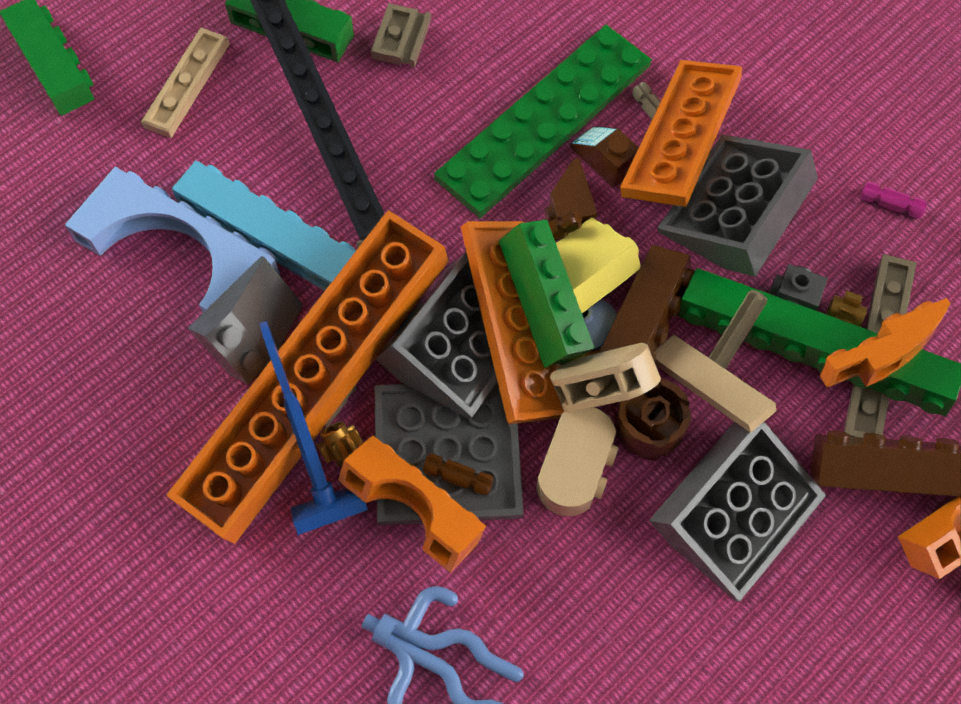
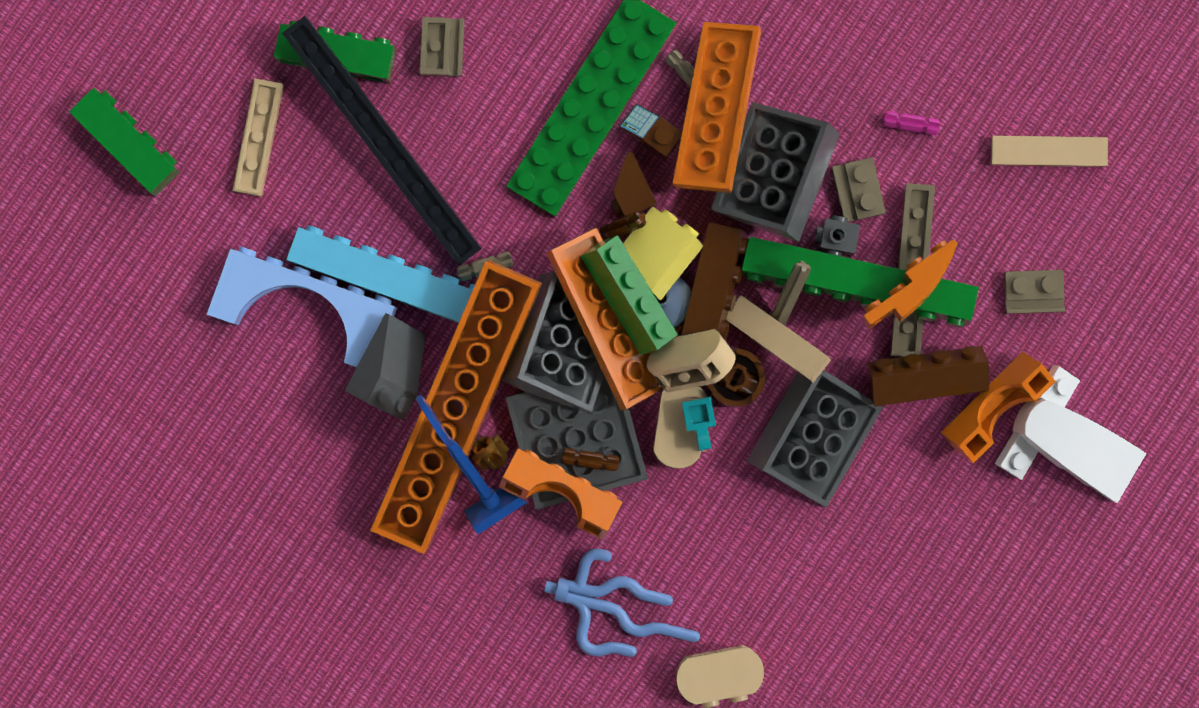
camera: 10 degrees left, 20 degrees up
(602, 448) = (699, 417): none -> teal plate
(827, 252) = (858, 190): none -> dark tan plate
(847, 308) = (880, 246): pearl gold gear -> none

